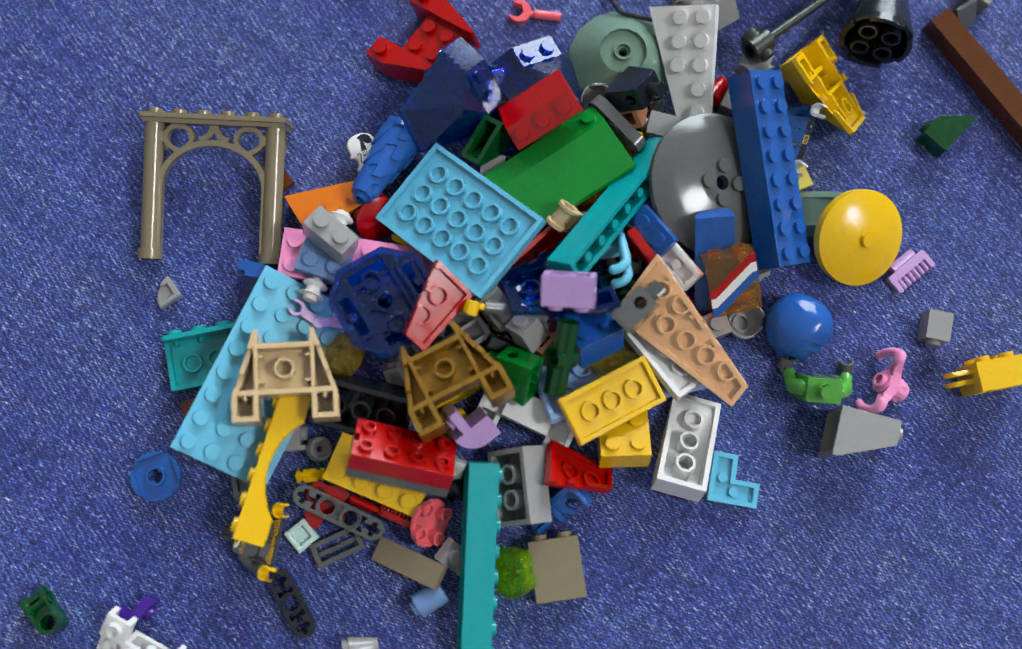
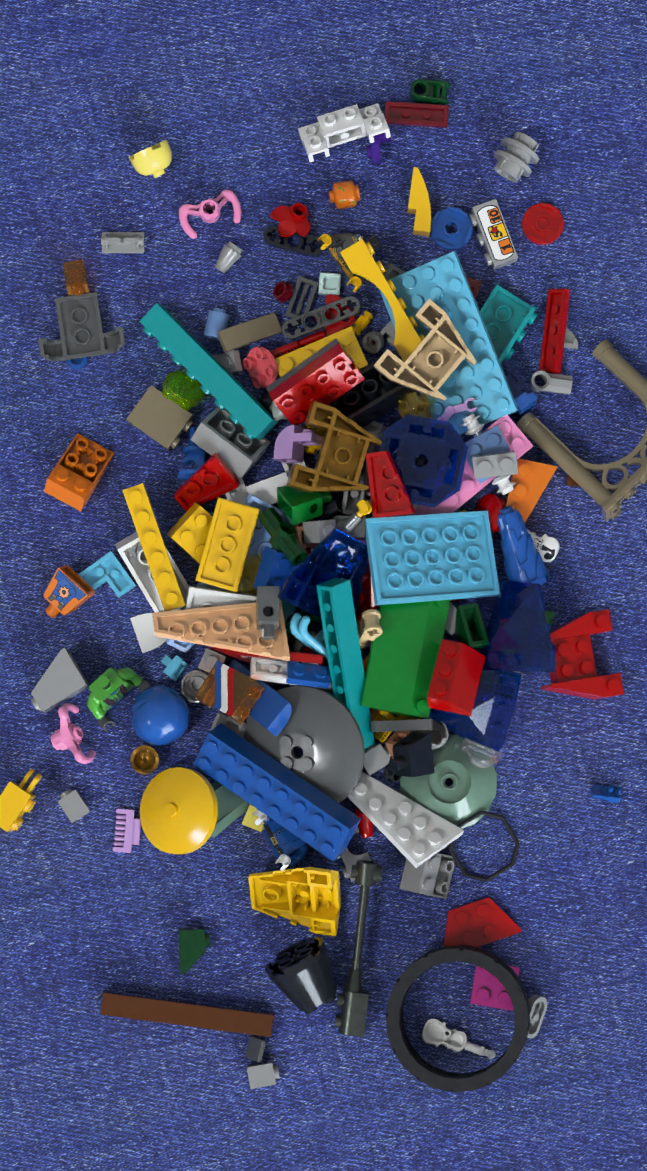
camera: 140 degrees right, 5 degrees up
(37, 477) = (516, 157): none -> light grey piece
(76, 603) = (416, 114): none -> dark red plate
(82, 403) = (542, 224): none -> red tile
(128, 434) = (493, 234): none -> brick
(157, 523) = (419, 205): none -> yellow slope
(169, 307) = (554, 330): none -> red tile
(208, 598) = (344, 194): none -> orange head
(217, 269) = (553, 383): none -> light grey piece
(276, 621) = (291, 222): none -> red plate
(345, 568) = (283, 291): none -> dark red plate
(536, 14) = (535, 755): coral piece -> none
(568, 290) = (316, 571): lavender brick -> none
(577, 50) = (480, 755): none -> clear tile
(668, 594) = (78, 472): none -> orange slope
(672, 466) = (154, 547): none -> yellow arch
(739, 413) = (145, 633): none -> white sticker
(748, 355) = (174, 667): none -> medium azure tile
(778, 502) = (66, 592): none -> torso
(845, 305) = (144, 759): none -> pearl gold piece

